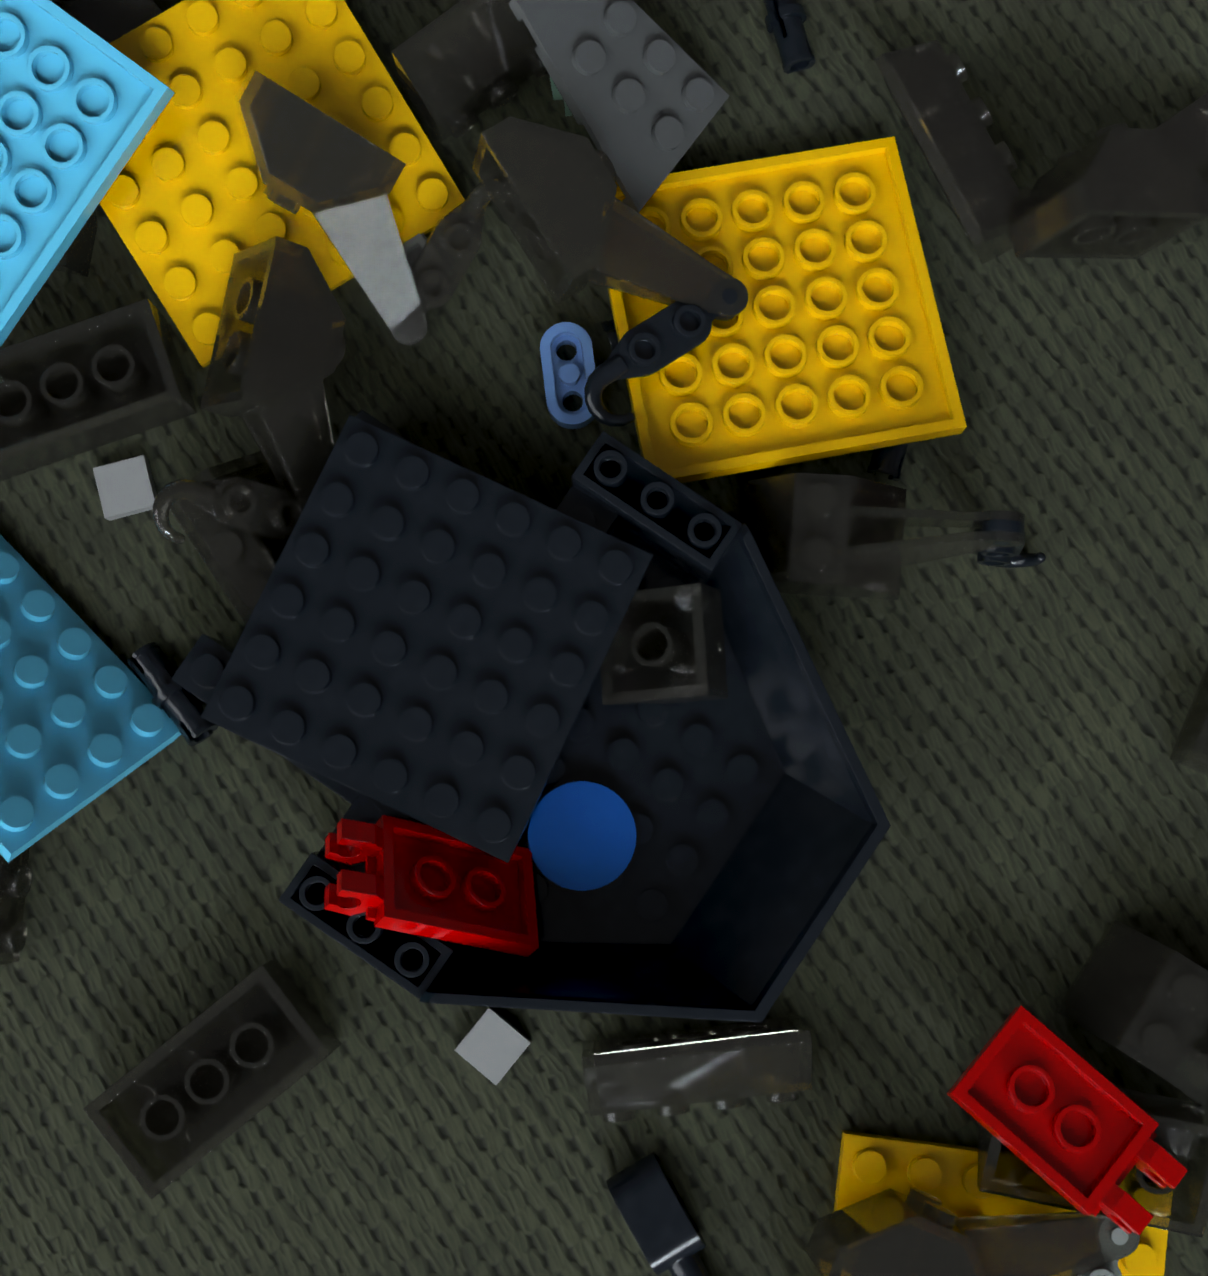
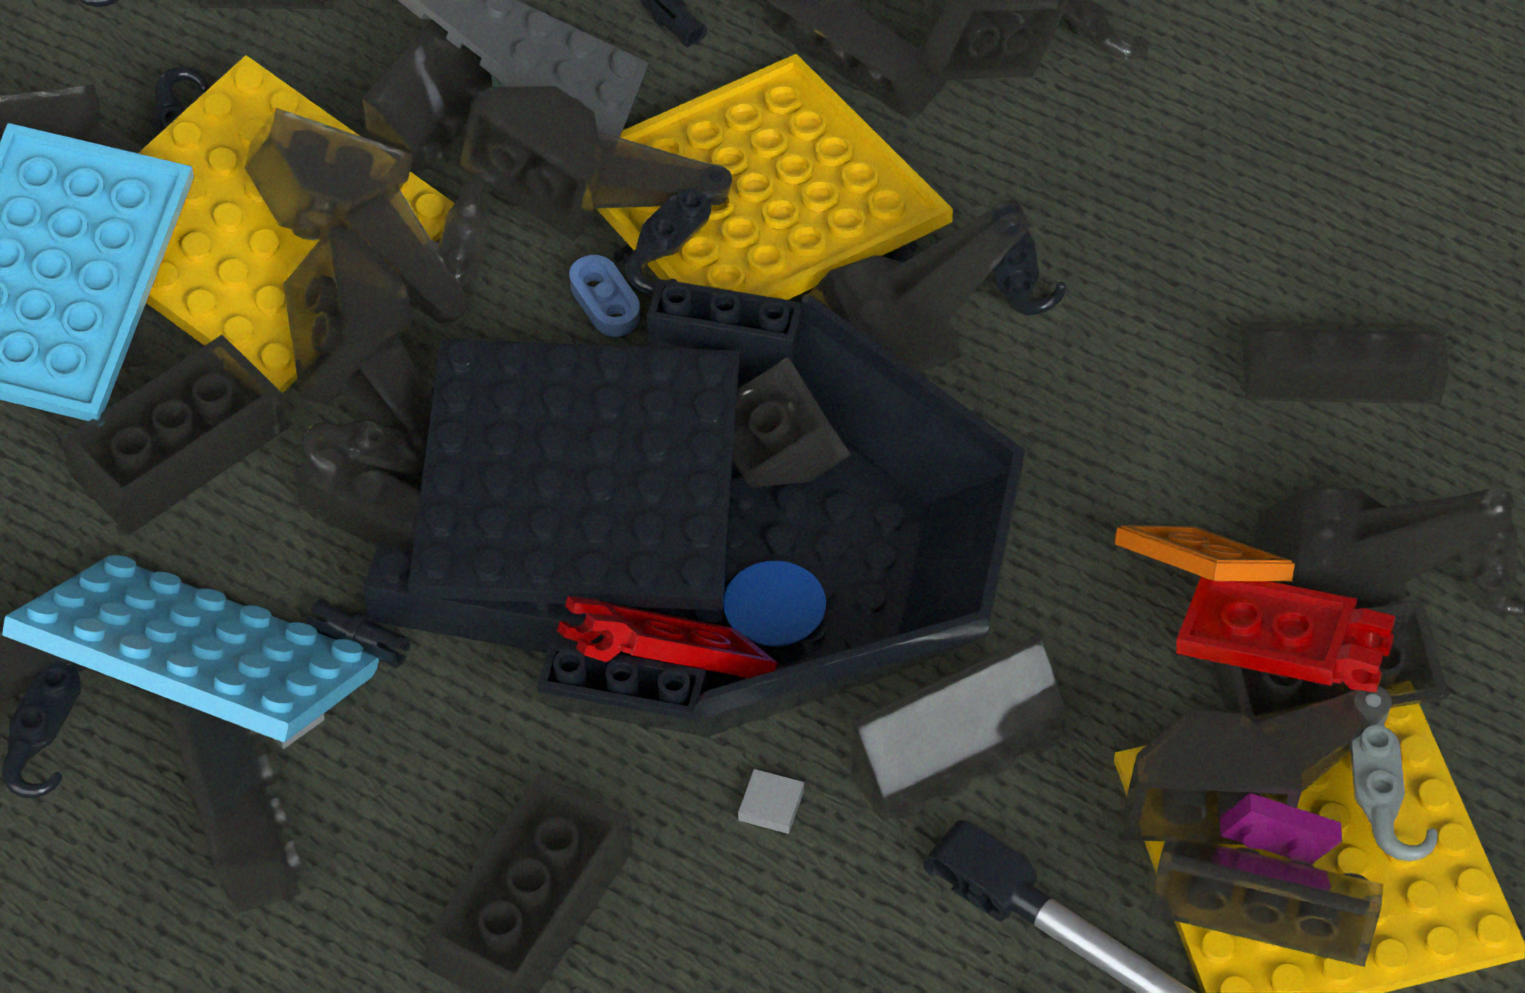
camera: 25 degrees left, 30 degrees down
(125, 487) = (248, 501): light grey tile -> none
(1031, 979) = (1204, 553): none -> orange tile

